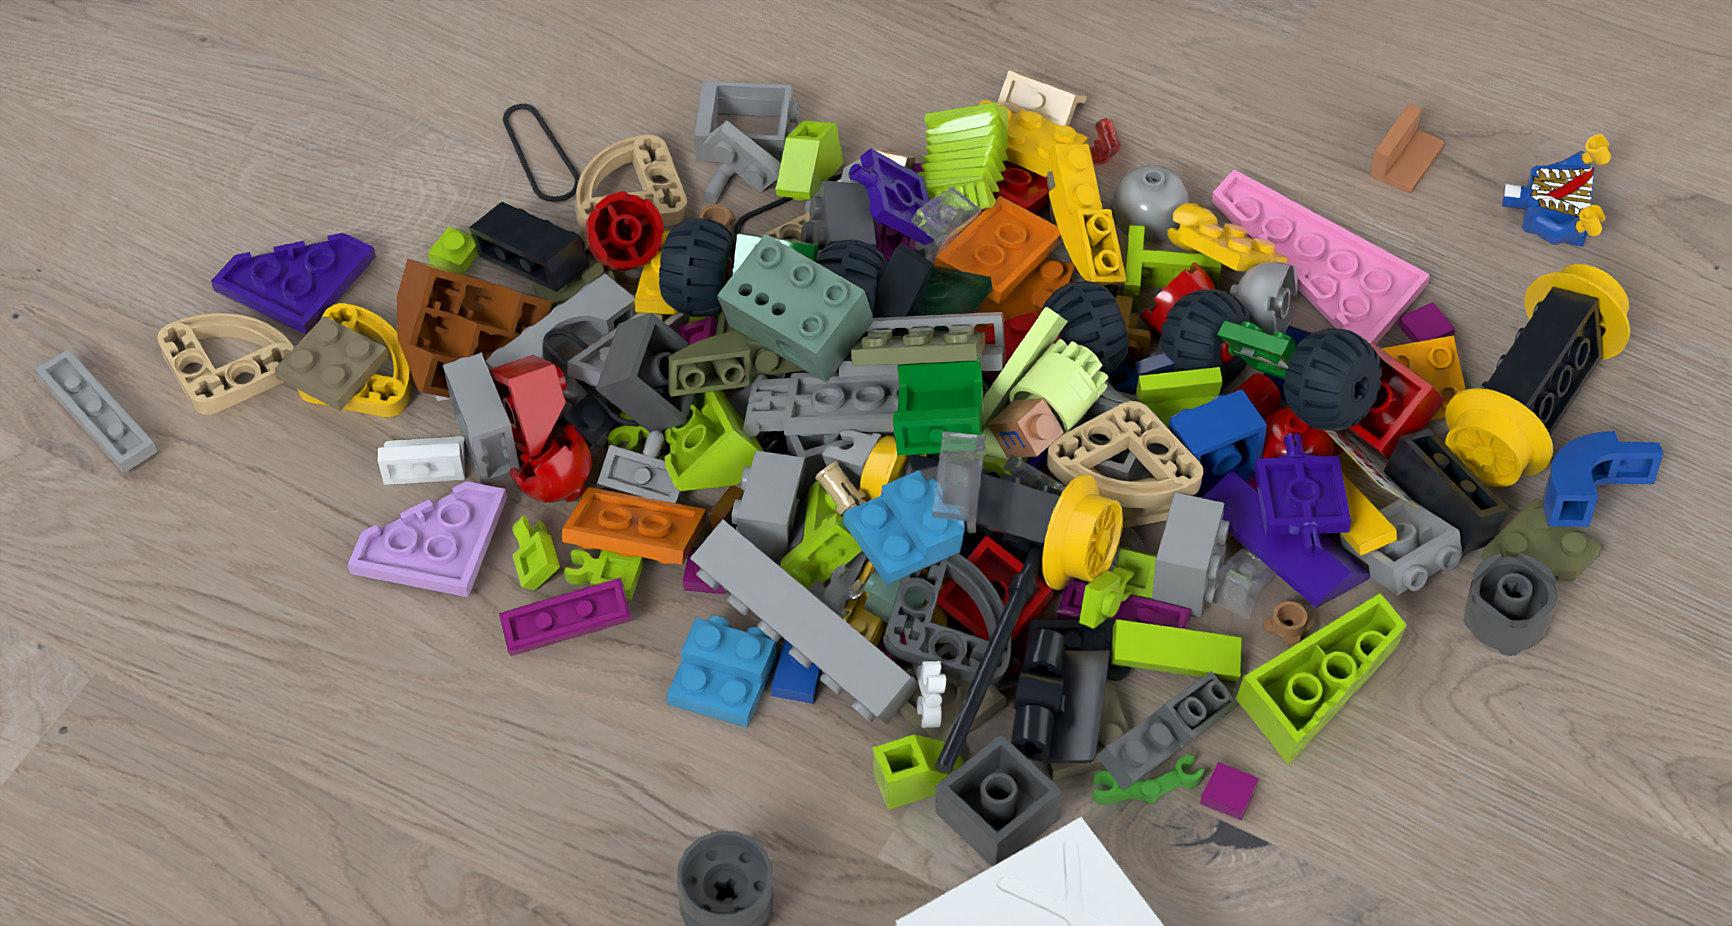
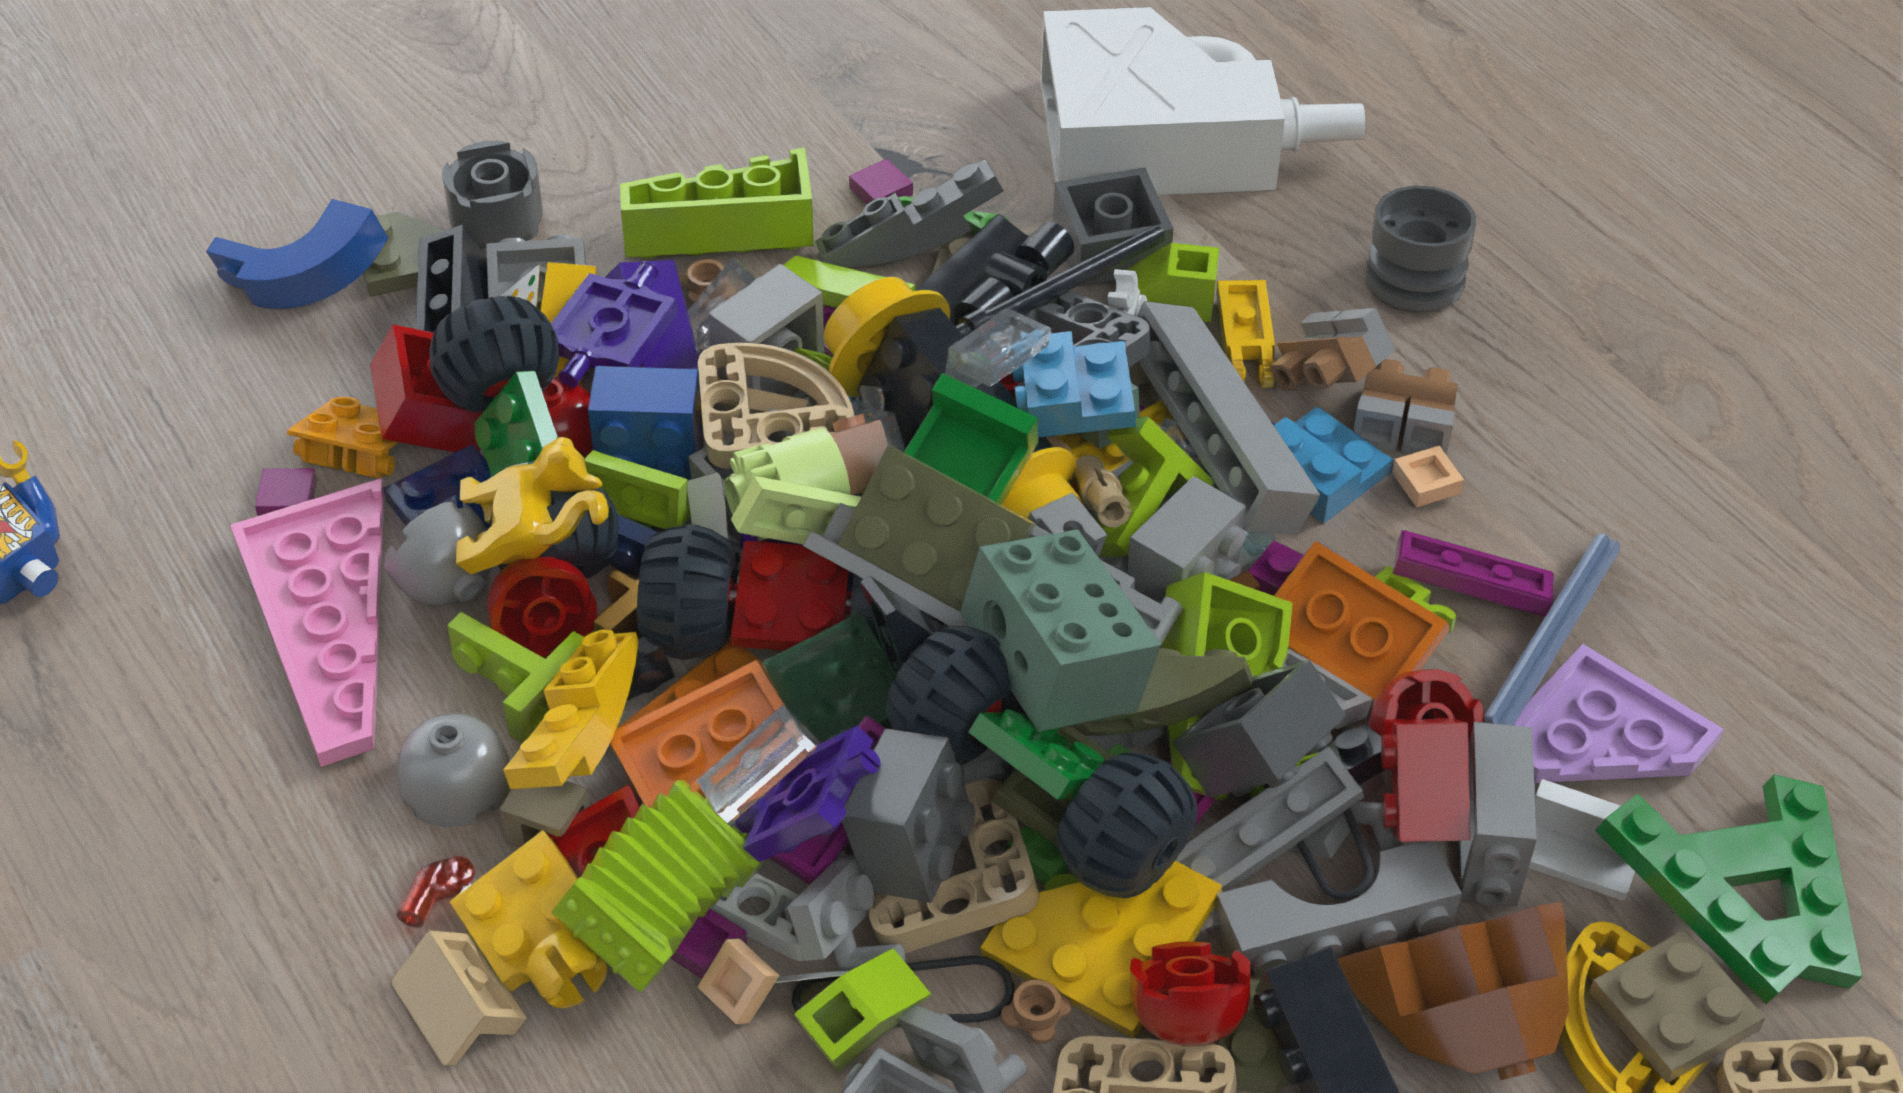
camera: 155 degrees left, 5 degrees down
(337, 429) = (1700, 868): none -> plate
(490, 588) = (1552, 632): none -> sand blue axle
(536, 556) = (1484, 652): lime plate -> none
(633, 691) = (1427, 476): none -> light nougat plate
(660, 756) = (1397, 397): none -> hips
(751, 745) = (1335, 349): none -> medium nougat hips
(840, 772) = (1247, 326): none -> yellow hinge
(1214, 294) = (519, 507): none -> yellow animal
(1227, 245) = (428, 641): yellow plate -> none
(1405, 152) = (88, 702): nougat panel -> none
(1509, 420) = (250, 333): brick -> none

